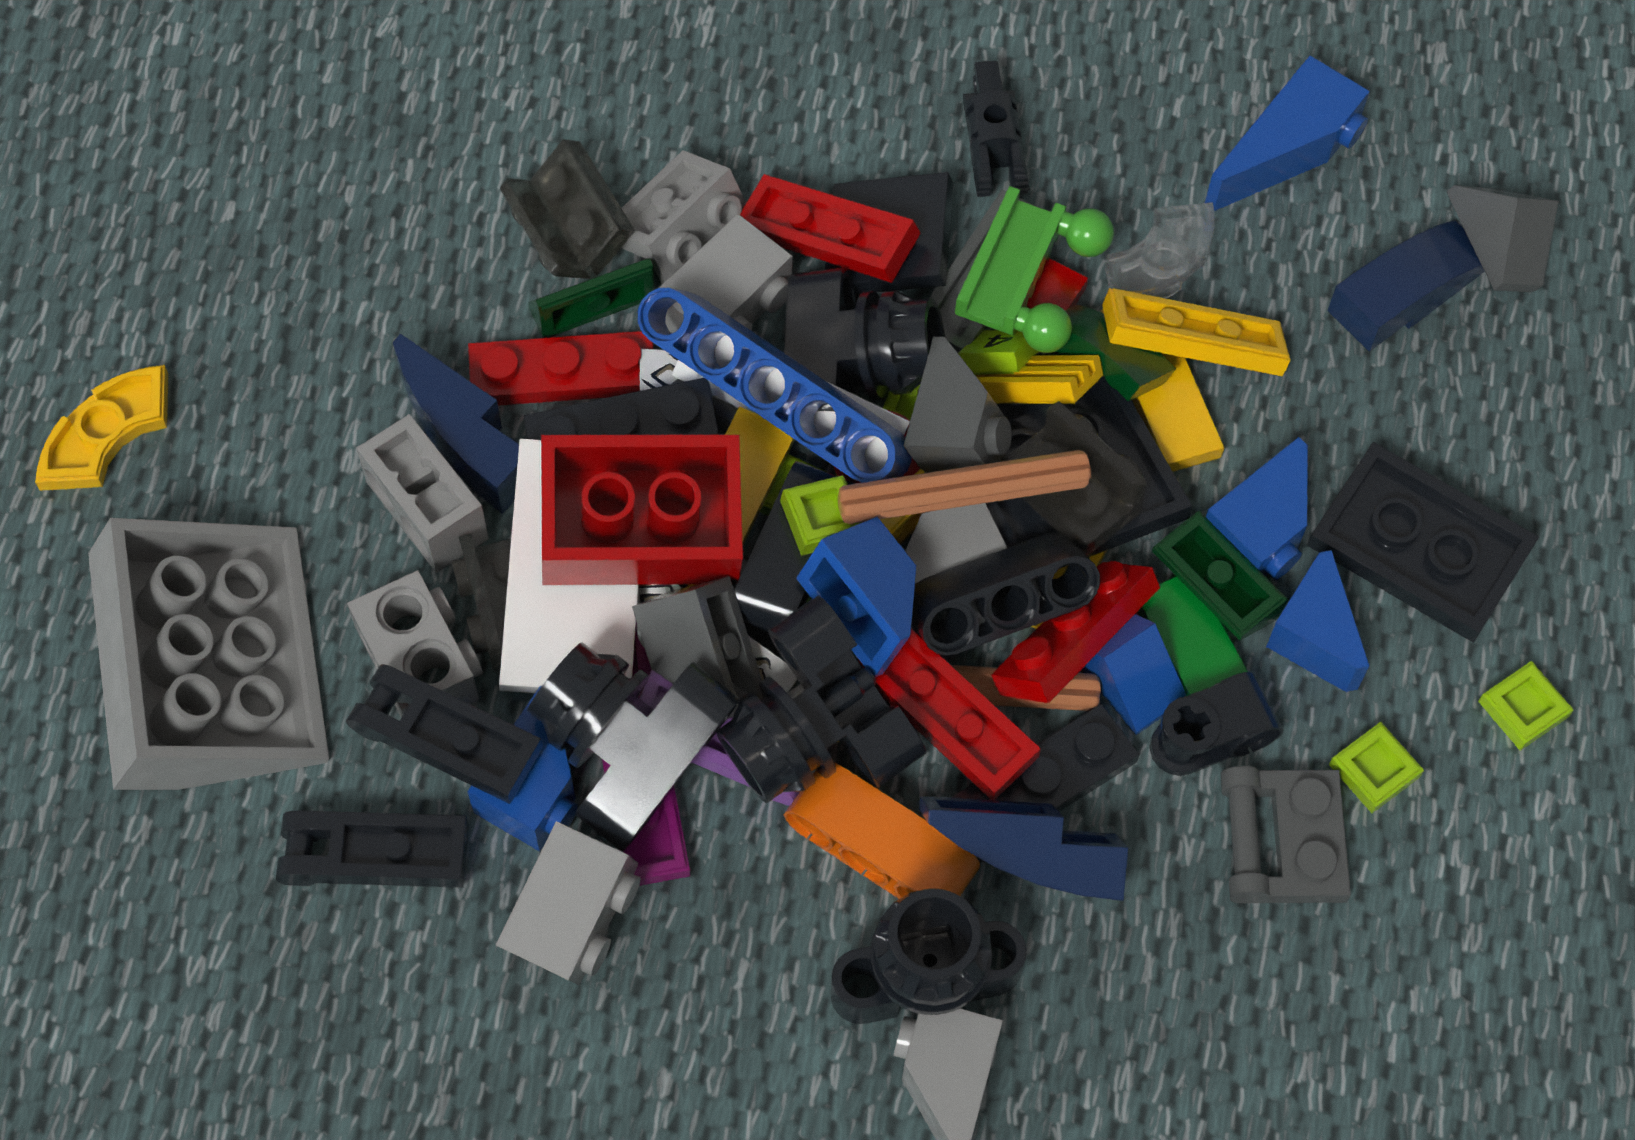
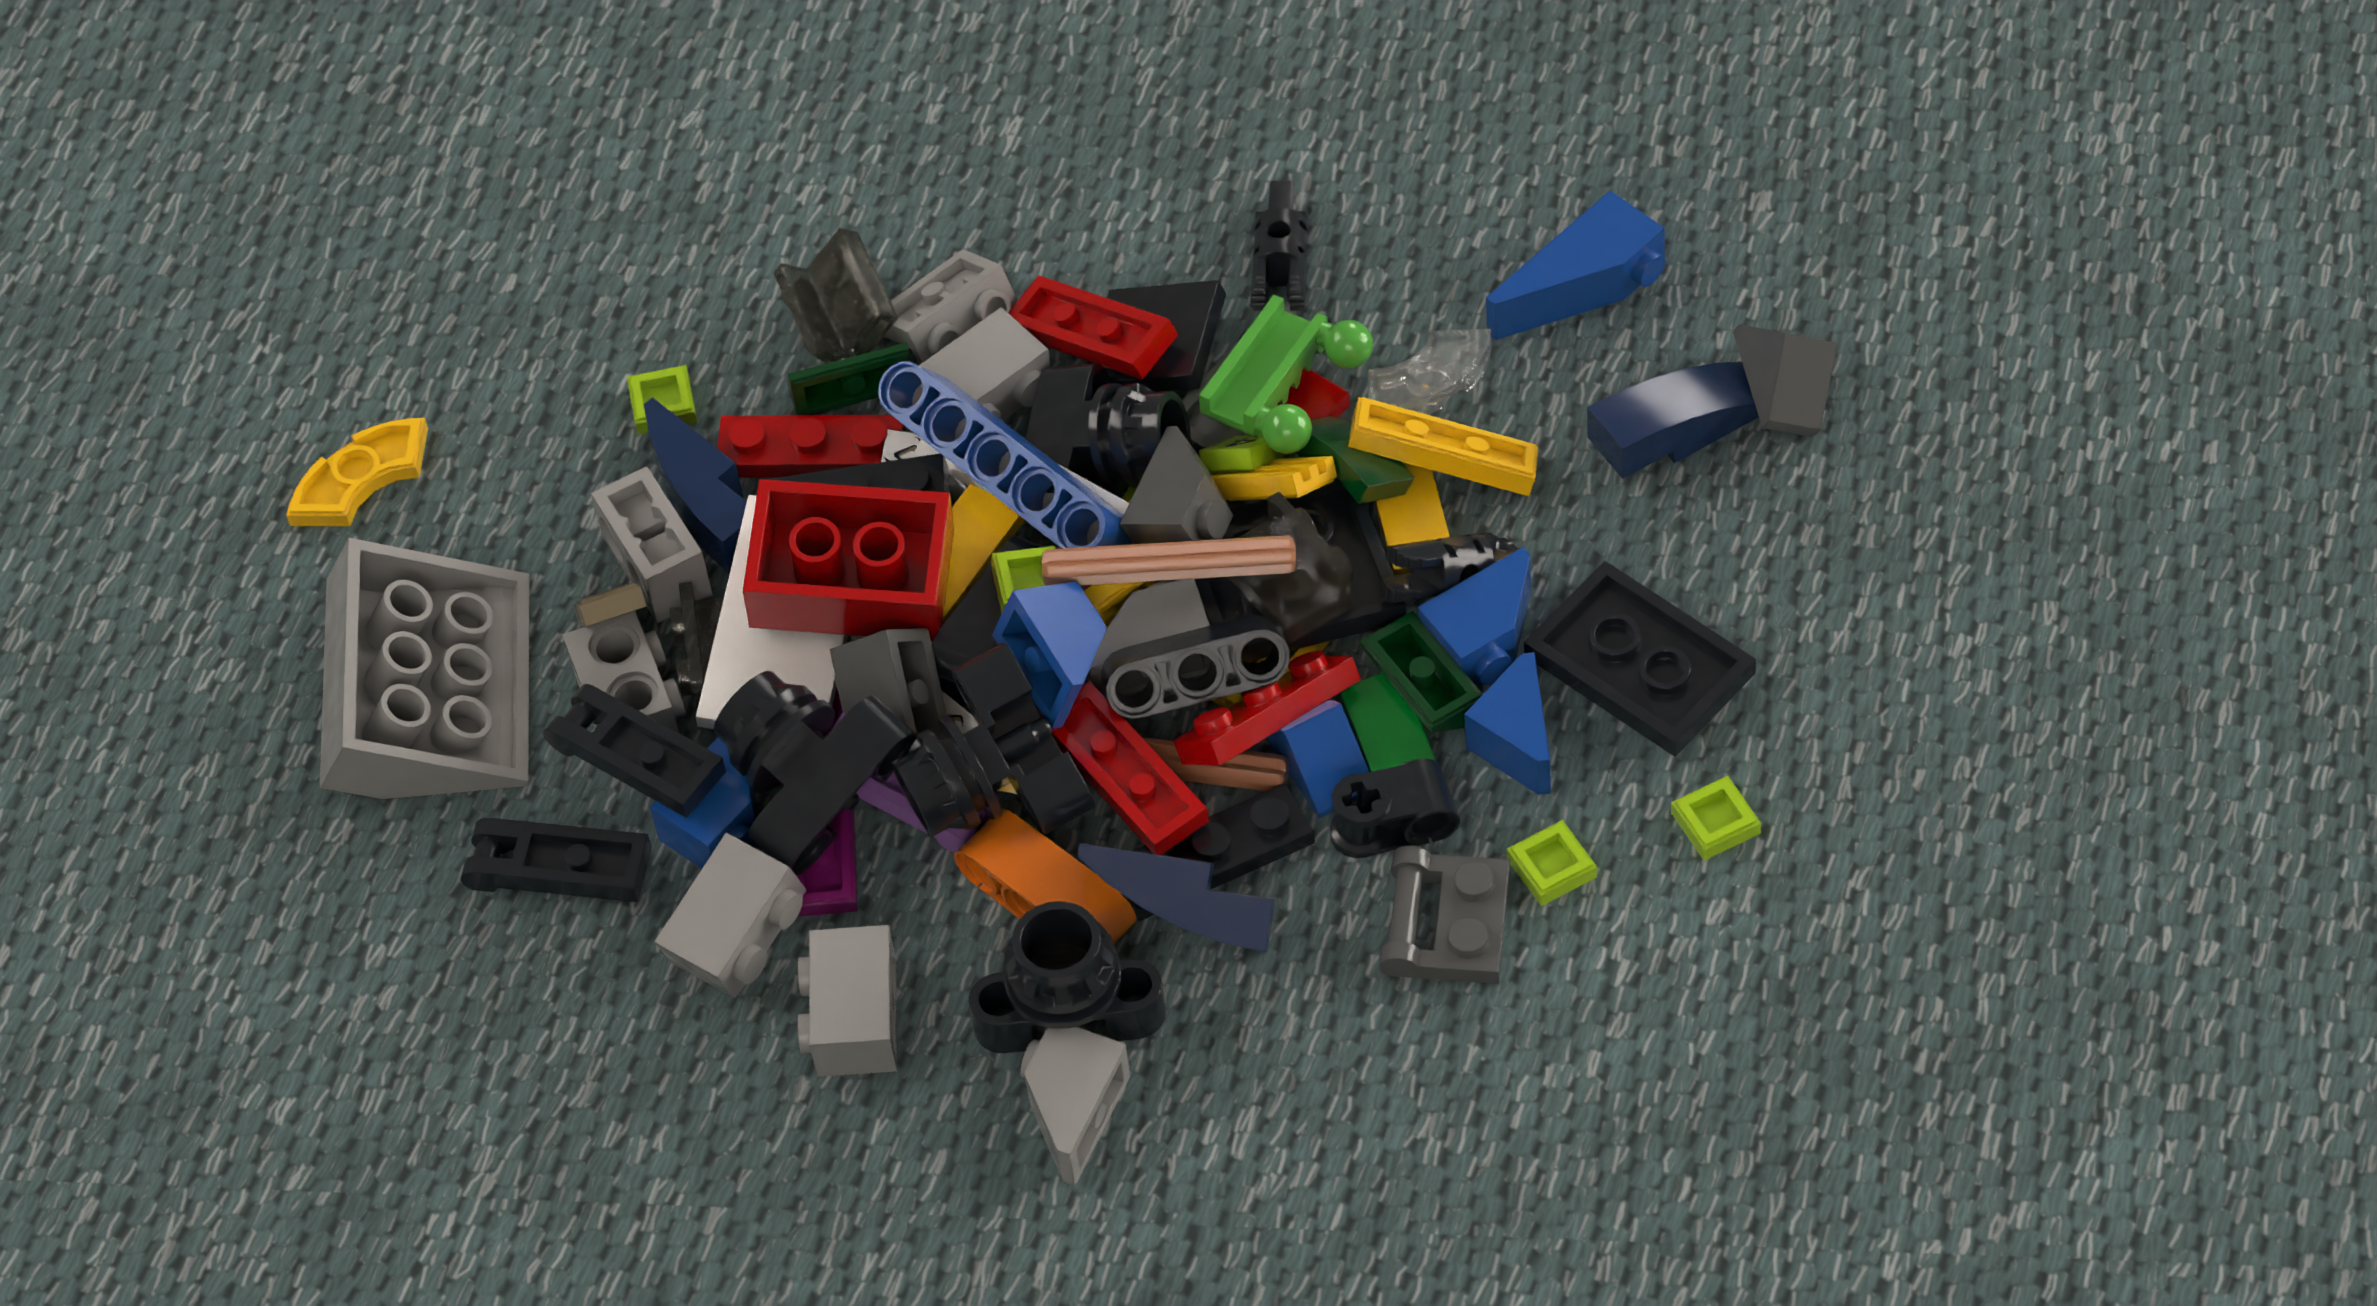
camera: 15 degrees right, 10 degrees down
(390, 565) = (609, 604): none -> dark tan tile
(405, 316) = (667, 386): none -> lime tile
(706, 987) = (850, 1001): none -> light grey brick
(1224, 461) = (1440, 564): none -> black hinge

